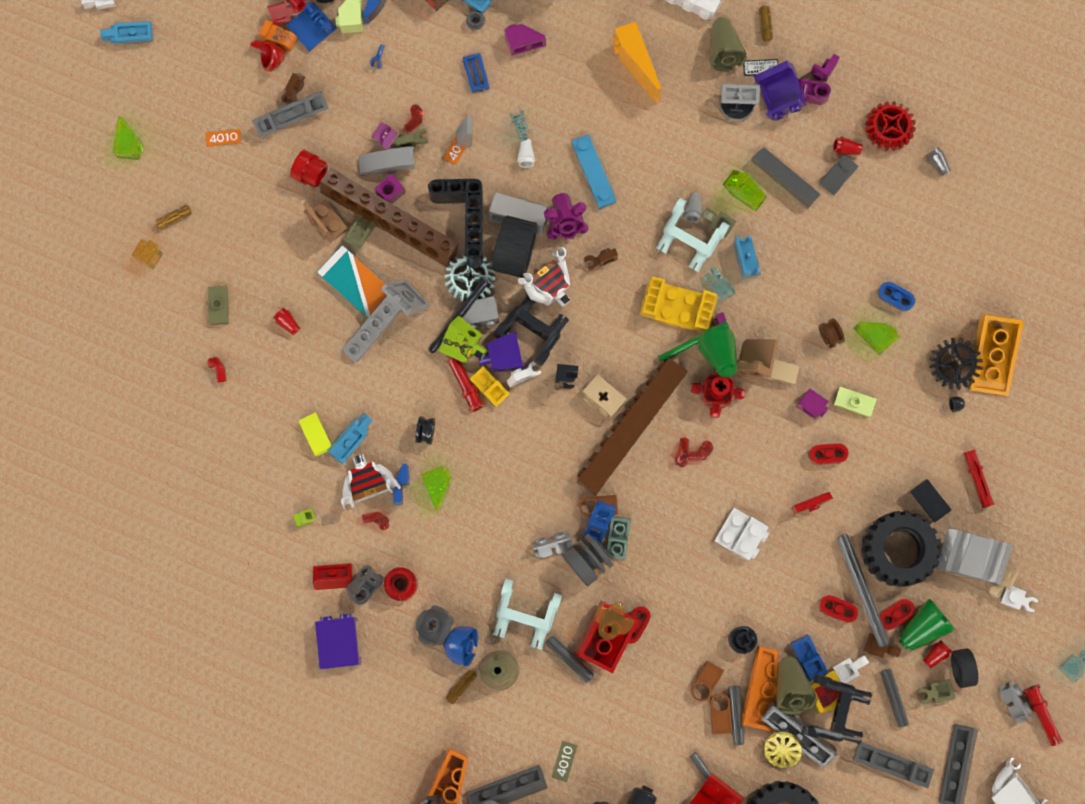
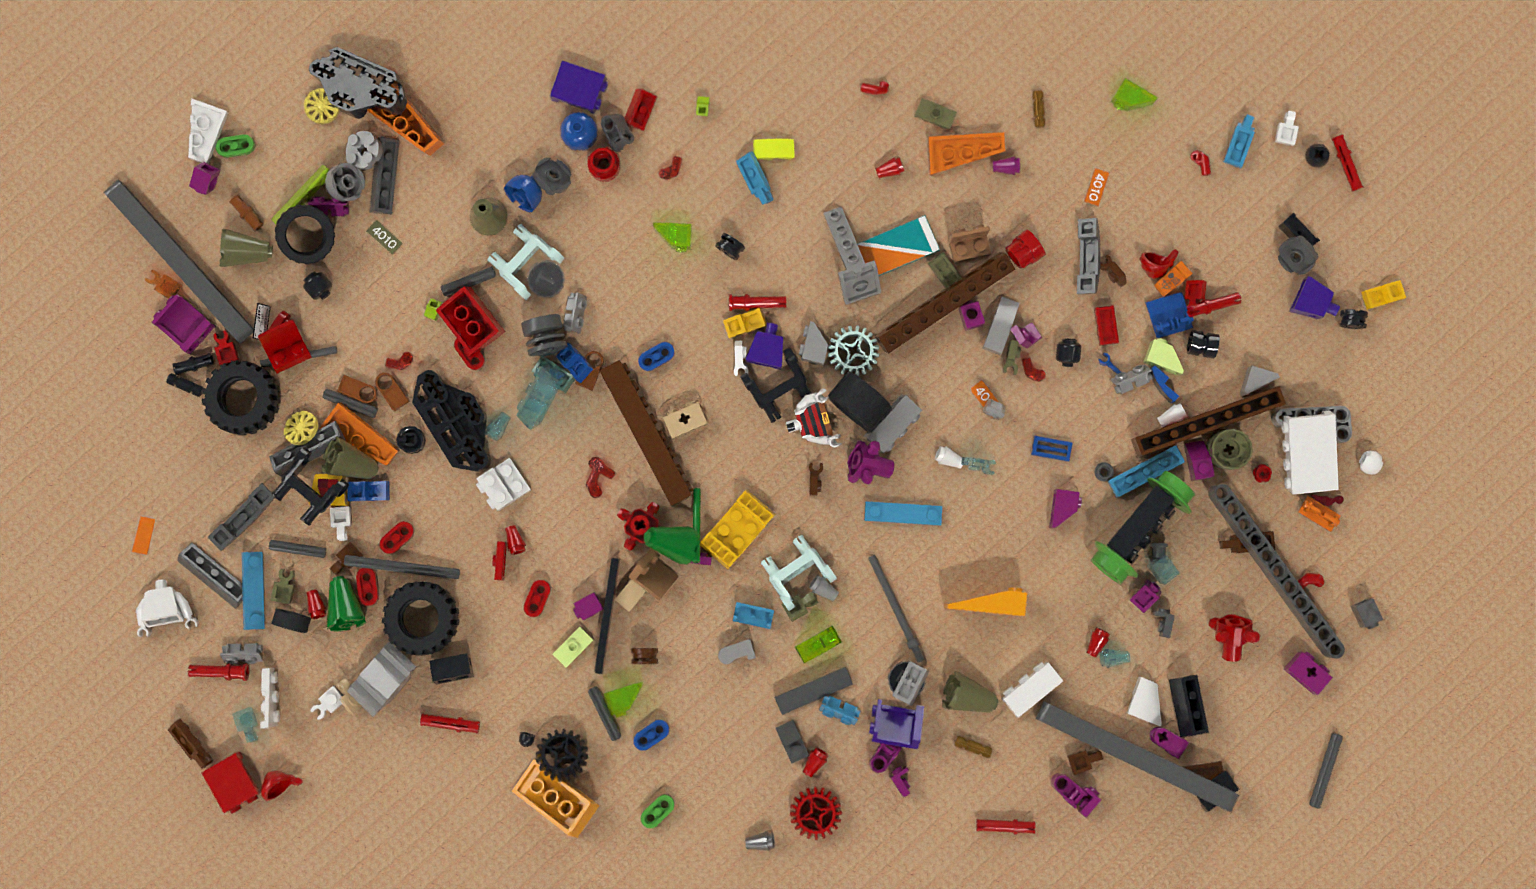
camera: 110 degrees right, 5 degrees up
(147, 253) = (1012, 70): clear yellow brick -> none
(159, 58) = (1203, 161): none -> red arm
(238, 220) = (1008, 165): none -> magenta cone
(241, 267) = (957, 150): none -> orange wing
(345, 73) = (1106, 325): none -> red plate
(366, 481) = (708, 174): torso -> none
(377, 27) = (1123, 381): none -> light grey hinge
(379, 623) = (578, 131): none -> blue cylinder
(384, 94) = (1068, 352): none -> black head
(402, 479) = (696, 207): blue slope -> none
(461, 312) = (838, 357): black bar -> none
(461, 686) = (490, 177): pearl gold axle -> none
(462, 341) = (794, 315): lime torso -> none
(470, 198) = (911, 377): black beam -> none
(533, 587) = (546, 279): none -> clear tile
(558, 450) = (656, 356): none -> blue plate
(564, 375) = (719, 391): black hinge -> none
(610, 679) = (431, 309): none -> lime piece
(615, 619) = (481, 332): clear yellow plate -> none
(646, 536) = (540, 395): none -> clear light blue slope
(676, 685) = (400, 364): none -> clear red arm
(691, 564) = (497, 427): none -> clear light blue cone
(702, 113) = (912, 642): none -> dark grey bar
(706, 604) = (453, 417): none -> black connector
(720, 285) = (736, 577): clear light blue plate -> none
(753, 67) = (933, 721): sticker -> none
(786, 257) = (729, 653): none -> light grey leg
(787, 499) = (514, 540): none -> red cone
(792, 139) = (832, 709): none -> dark azure hinge
(812, 383) = (607, 616): none -> black tile
(898, 347) = (604, 713): none -> dark grey axle
(954, 720) = (252, 590): none -> dark azure plate
(958, 259) = (657, 811): none -> bright green plate
(1026, 663) = (268, 706): none -> white wing

